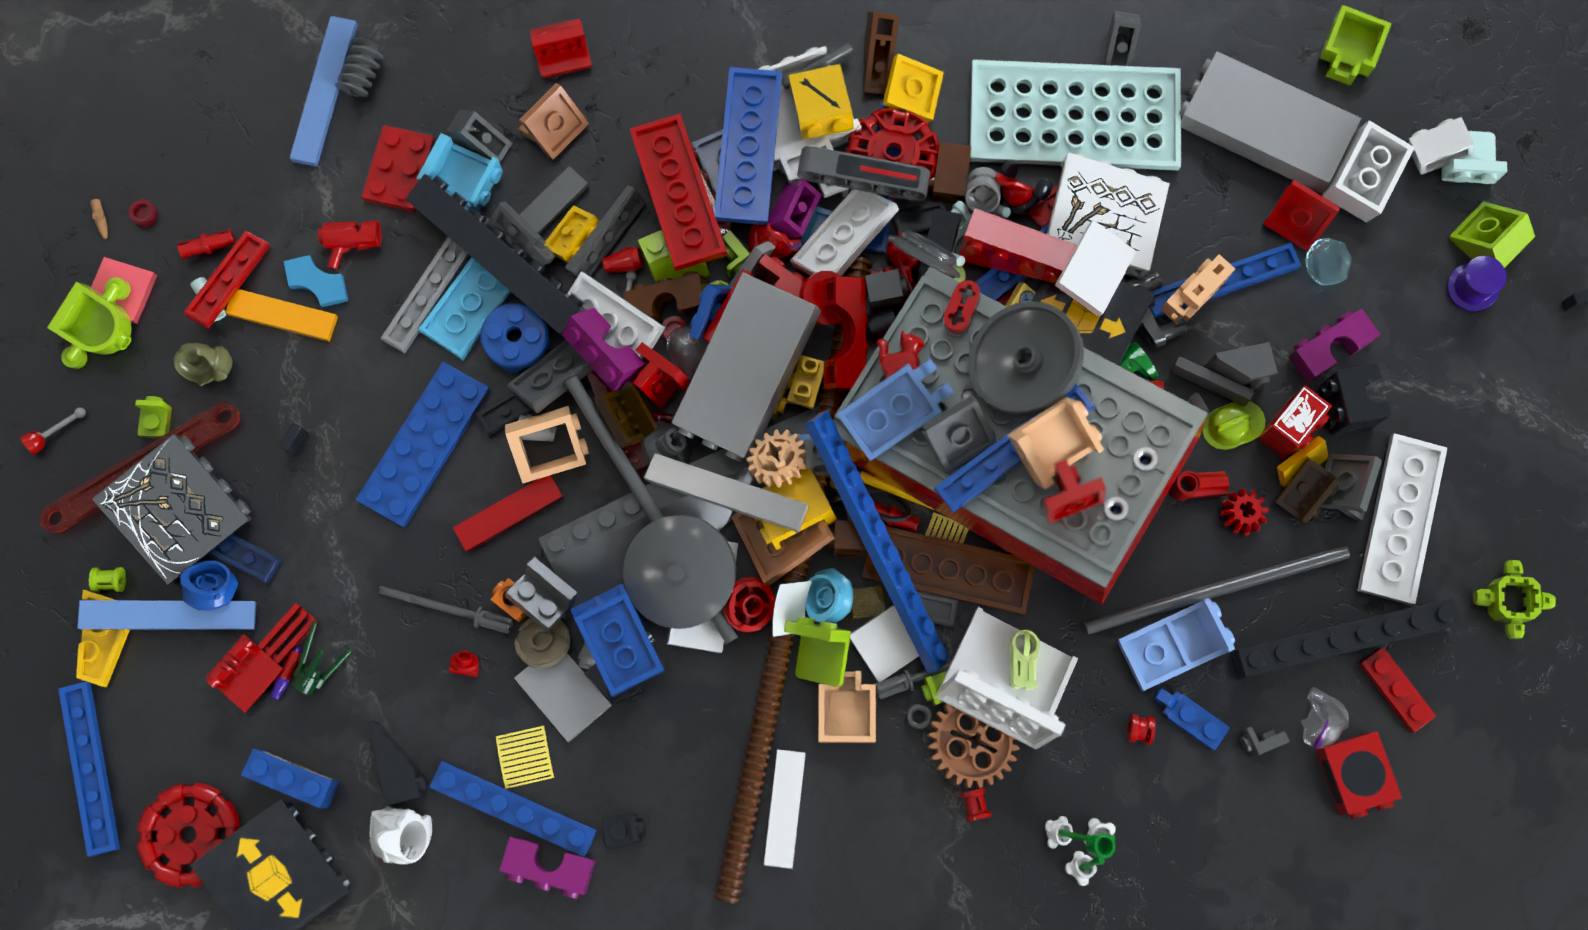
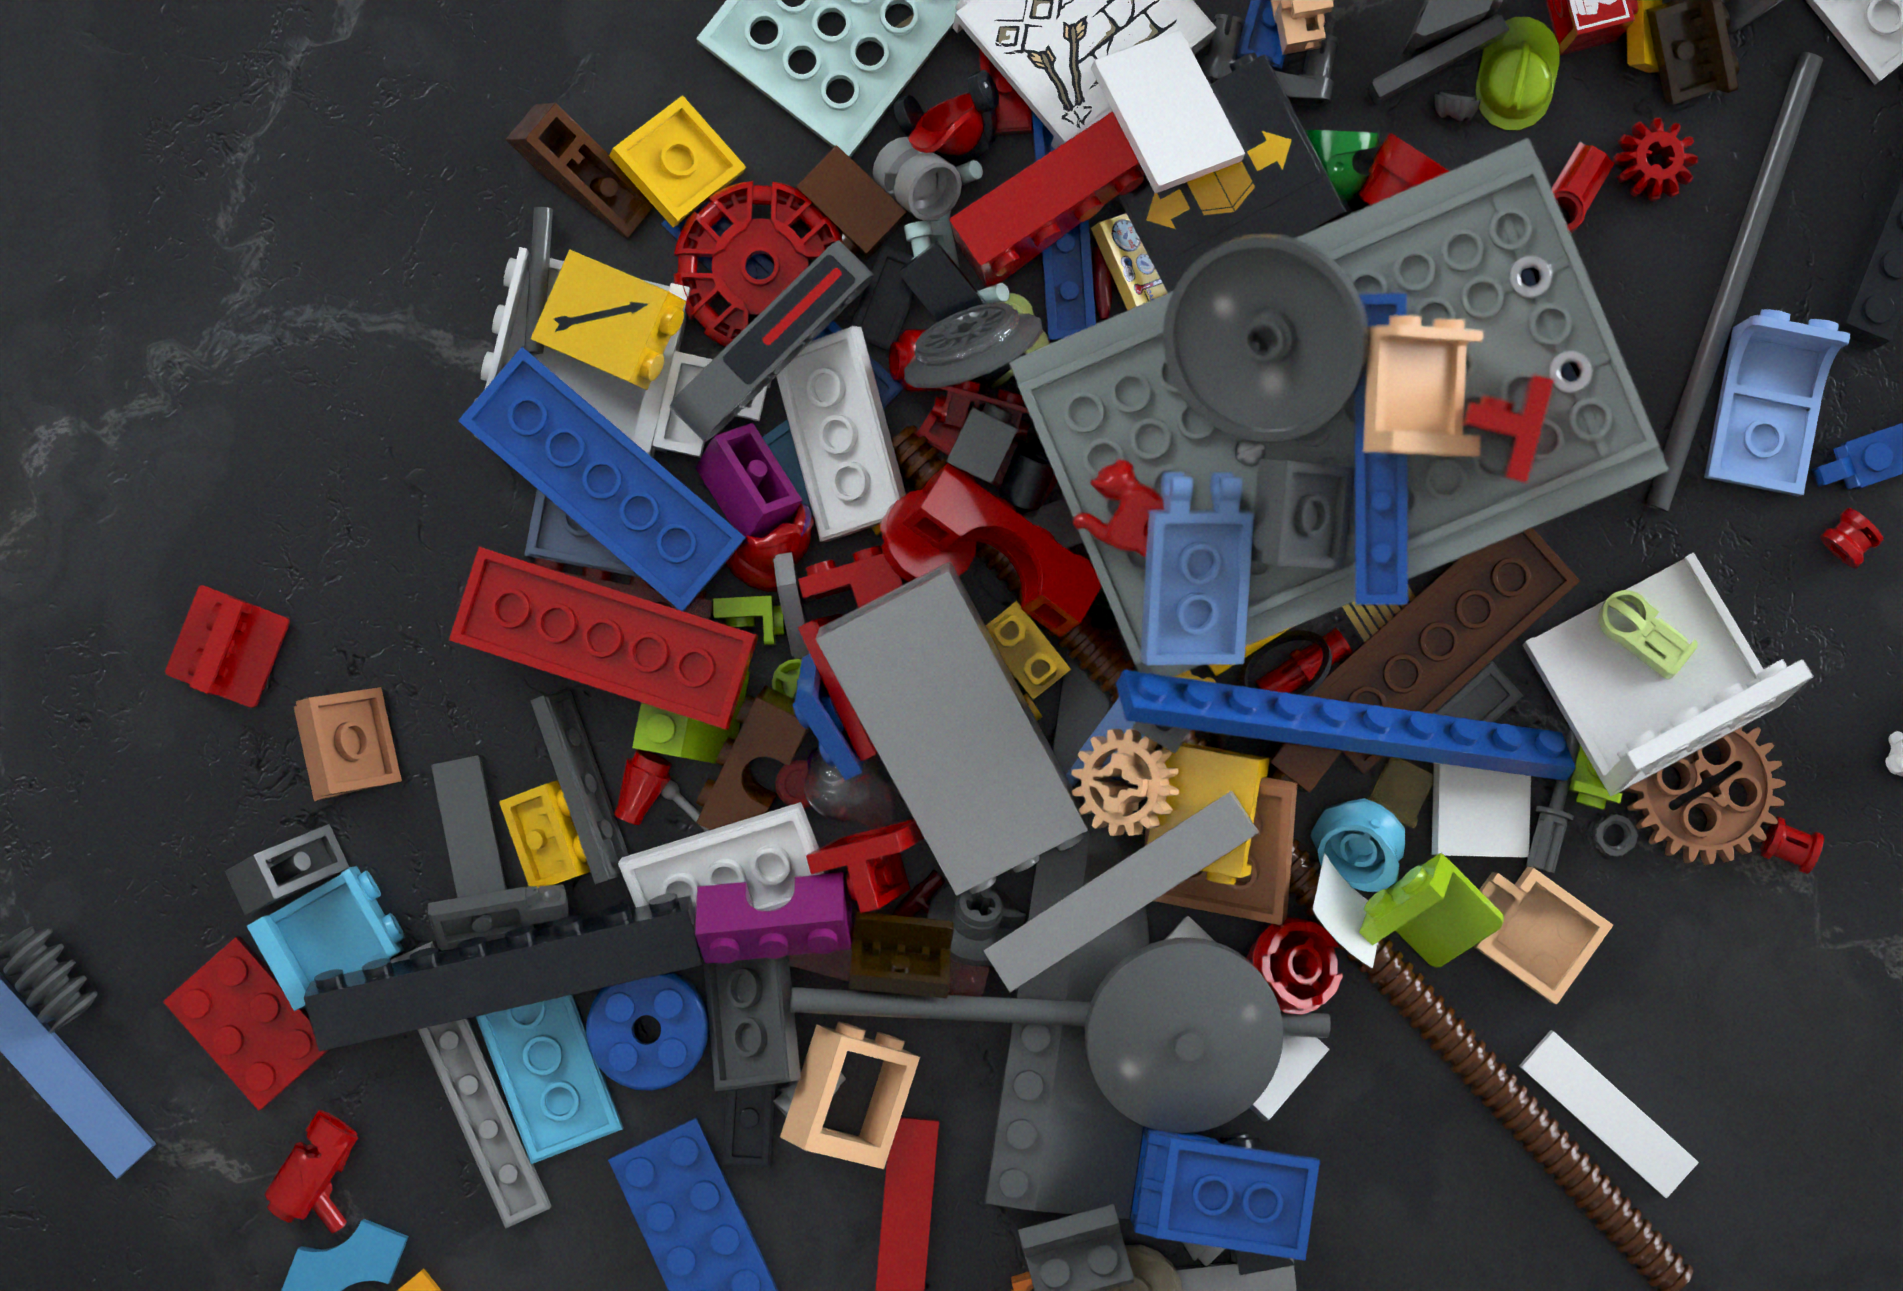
camera: 55 degrees left, 10 degrees up
(968, 309) = (1102, 373): red beam -> none

